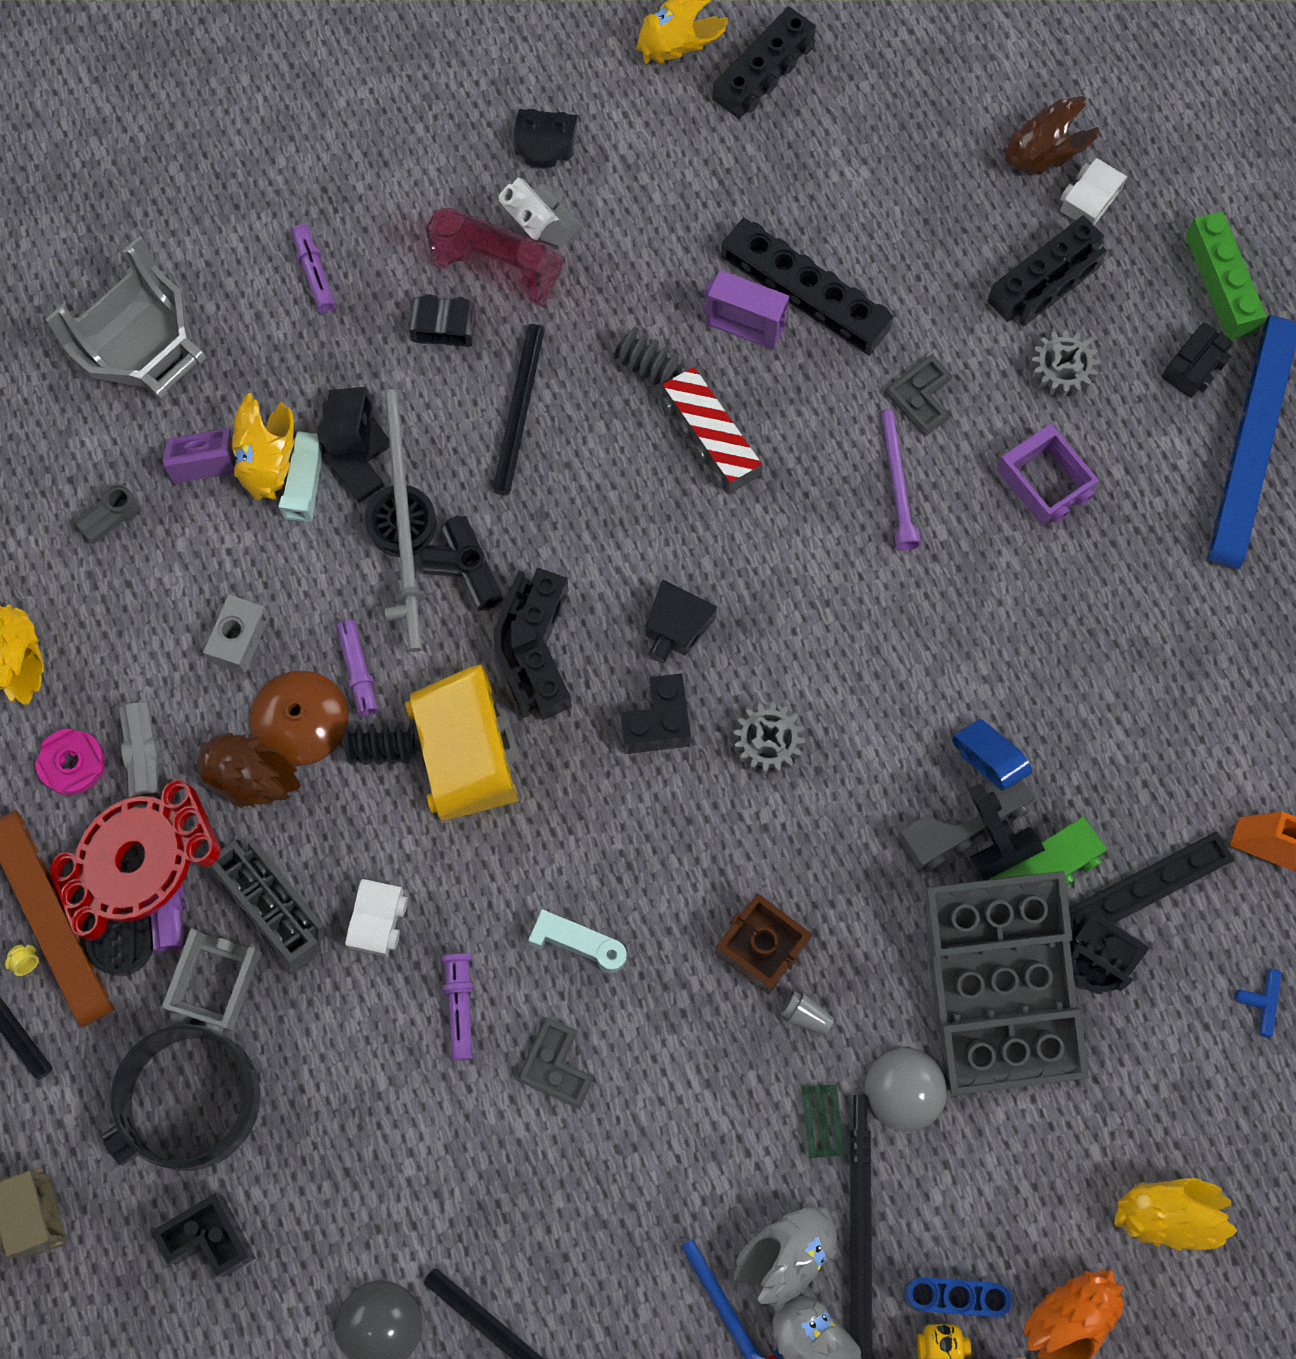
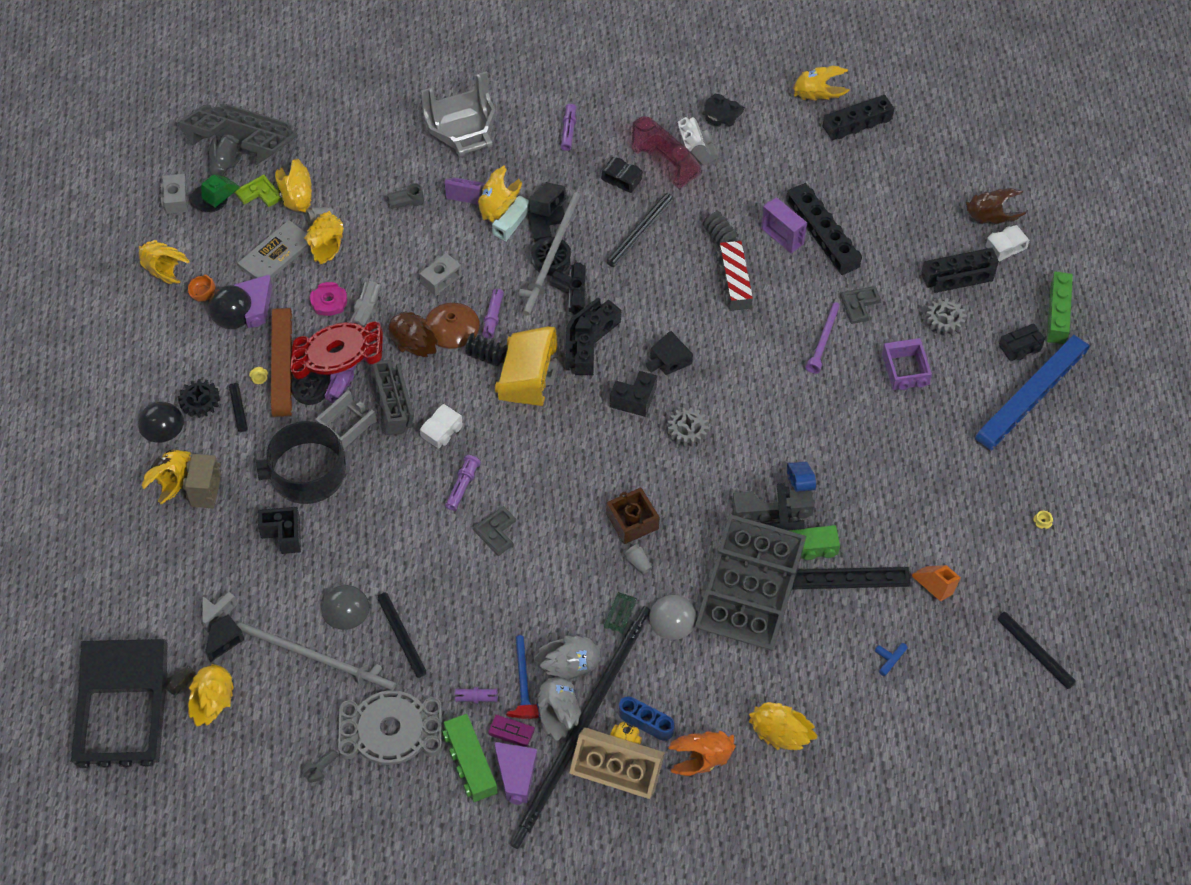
camera: 25 degrees right, 15 degrees down
(578, 939) = (538, 477): light aqua leg -> none
(1104, 954) = (812, 595): black slope -> none

